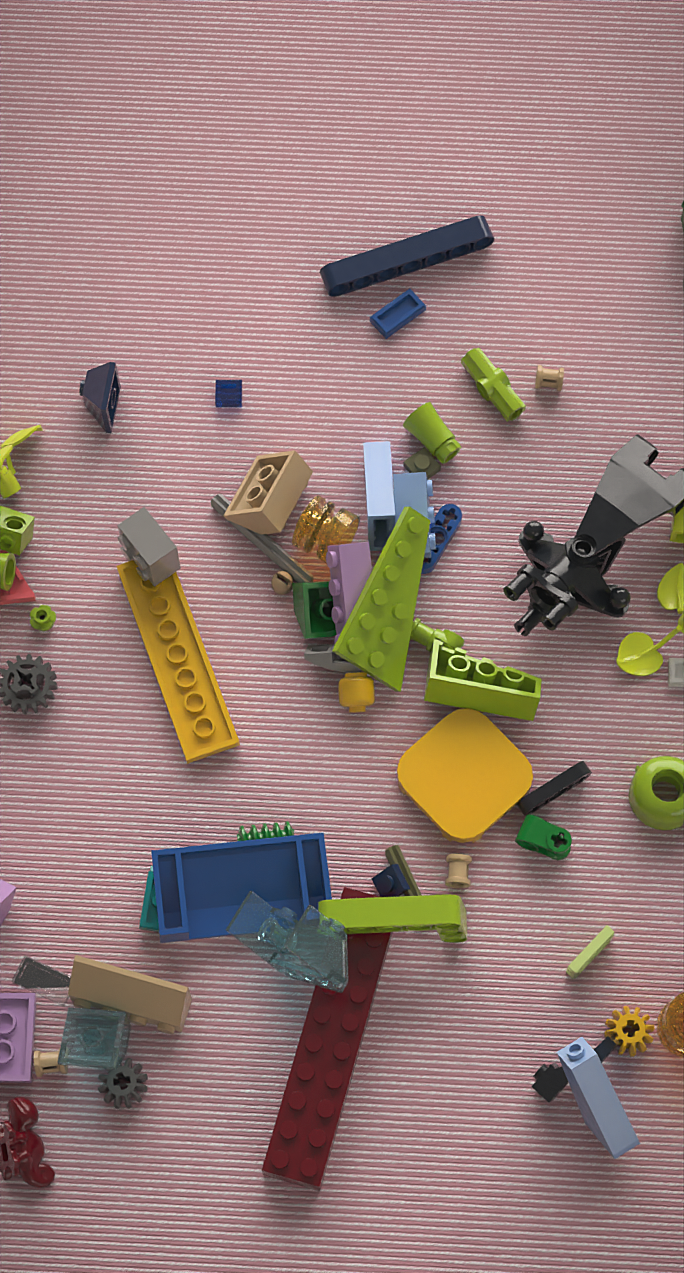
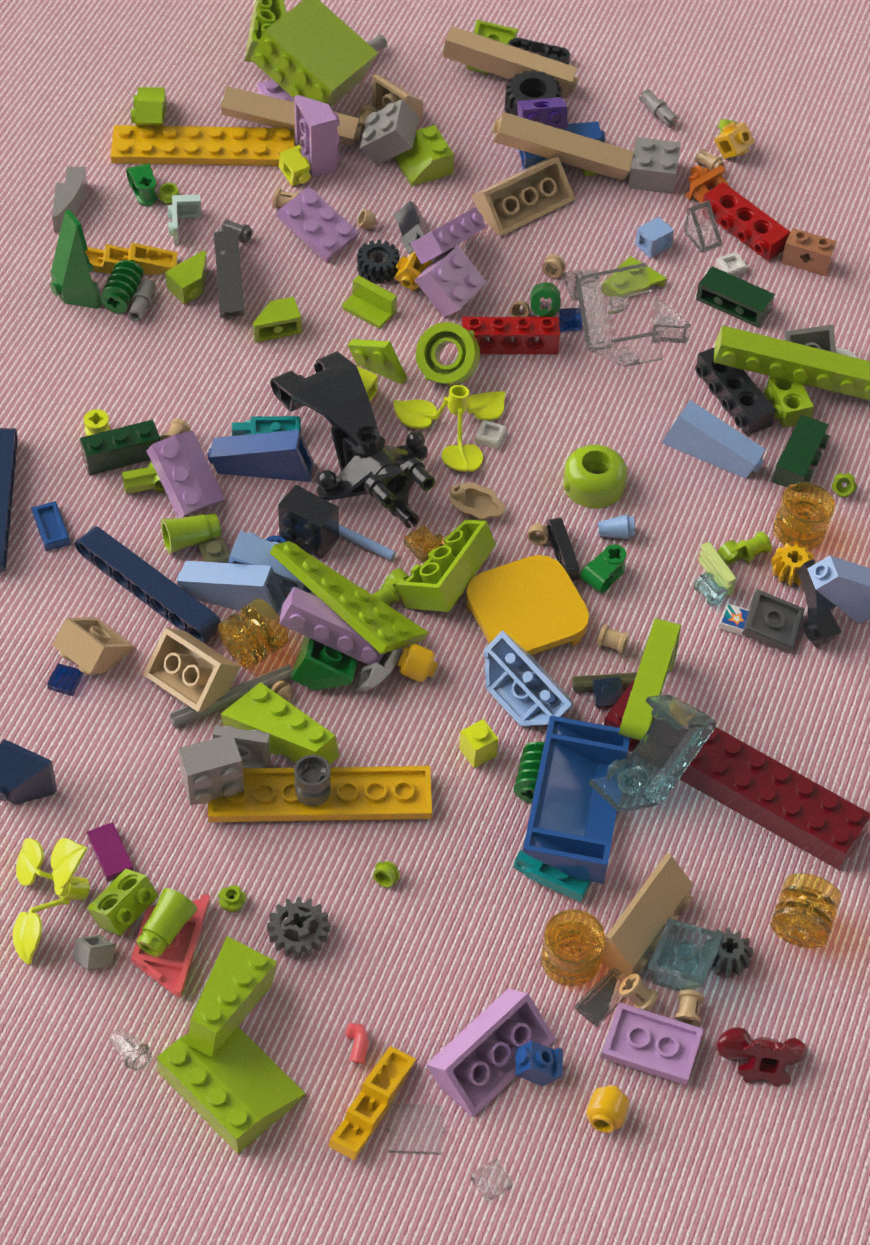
camera: 75 degrees left, 15 degrees down
(49, 1004) = (638, 992): none -> tan bush
(58, 499) = (109, 851): none -> magenta tile
(61, 920) = (575, 934): none -> clear yellow wheel
(110, 741) = (386, 874): none -> lime plate
(173, 639) = (312, 780): none -> dark grey wheel
(184, 1146) = (806, 910): none -> clear yellow wheel
(194, 566) = (252, 745): none -> light grey plate
(229, 592) = (289, 728): none -> lime wedge
(271, 399) = (91, 644): none -> tan slope
(280, 778) = (478, 743): none -> neon yellow brick
(357, 421) = (148, 584): none -> dark blue beam
(365, 800) = (522, 683): none -> light blue wedge
(479, 533) = (308, 521): none -> black brick
(491, 403) = (185, 474): none -> lavender slope
(492, 591) = (366, 543): none -> light blue bar
(507, 650) = (422, 542): none -> clear yellow bracket
(510, 335) = (118, 447): none -> dark green brick
(530, 311) = (96, 422): none -> neon yellow wheel
(536, 989) = (733, 619): none -> tile
(544, 1027) = (773, 621): none -> dark grey tile
(551, 466) = (263, 455): none -> blue slope
(562, 952) = (710, 589): none -> clear light blue bush
(566, 758) = (542, 537): none -> tan hinge
(580, 684) = (476, 501): none -> tan arm
(590, 454) = (266, 424): none -> teal hinge
(607, 837) = (618, 527): none -> light blue cone
(632, 978) = (734, 551): none -> lime connector

